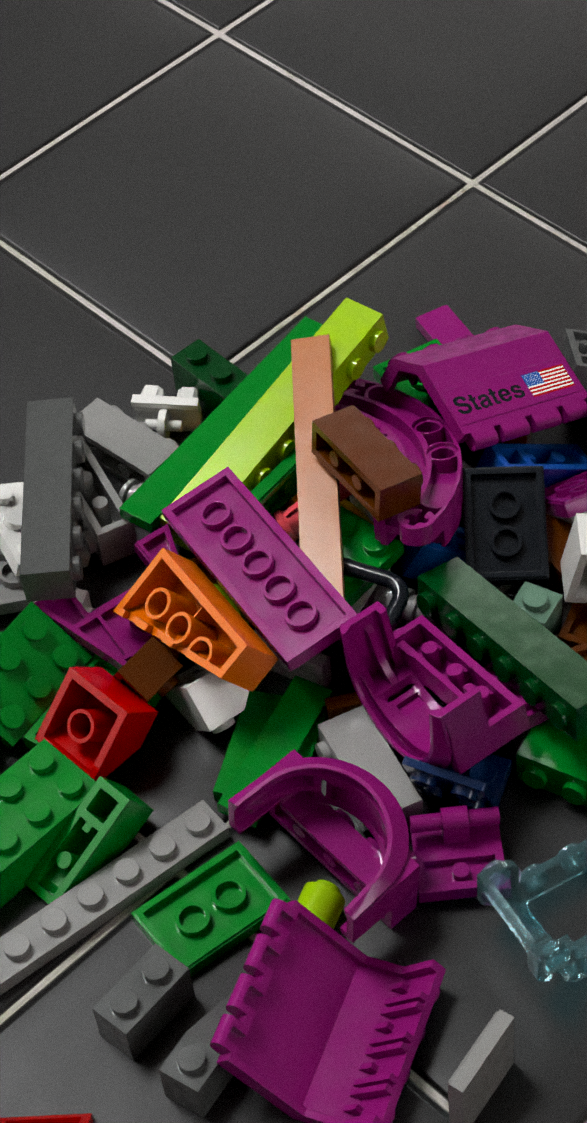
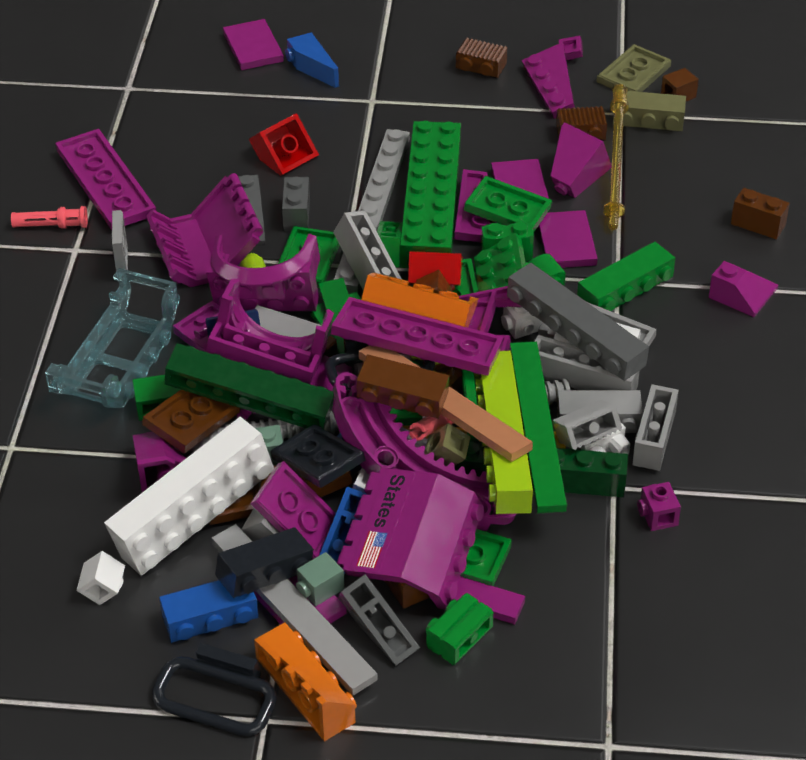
camera: 135 degrees right, 5 degrees down
(107, 375) = (655, 427): none -> light grey brick
(165, 786) = (363, 247): none -> light grey brick
(179, 391) = (587, 424): none -> light grey brick
(190, 319) = (659, 506): none -> magenta brick
(519, 307) = (459, 628): none -> green brick

